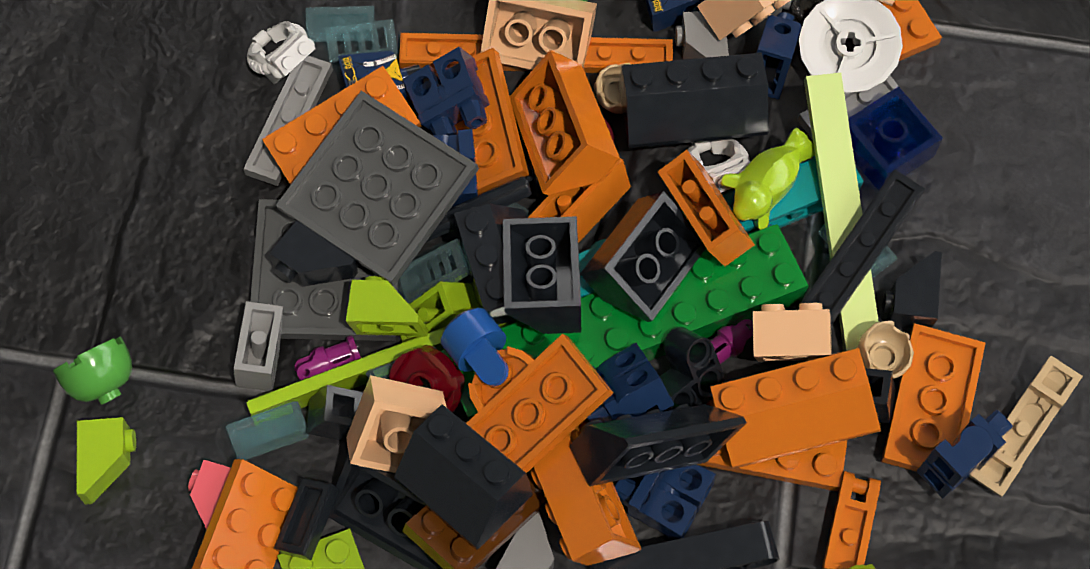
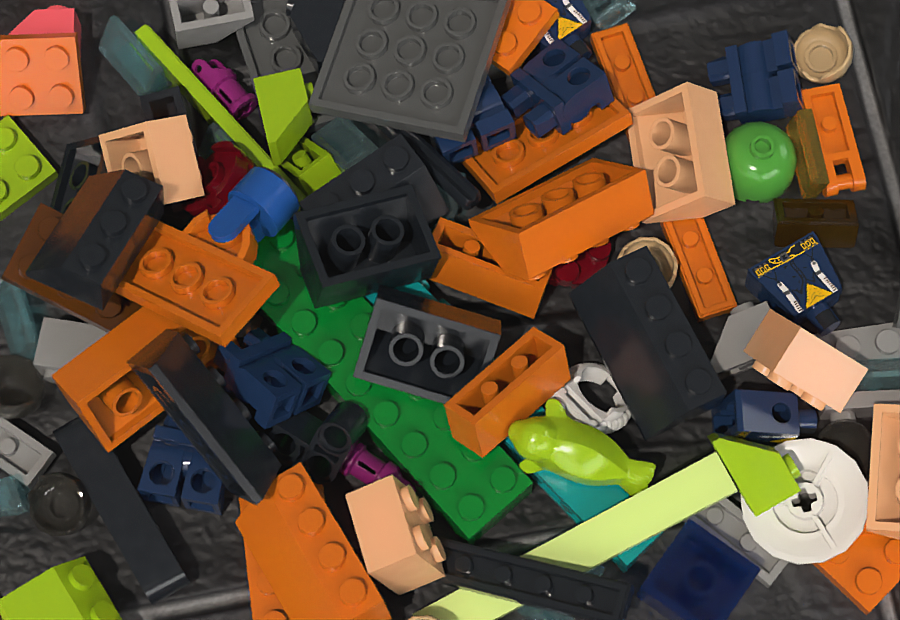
camera: 75 degrees right, 5 degrees up
(306, 519) = (46, 124): black tile -> none
(825, 55) = (757, 471): none -> lime slope

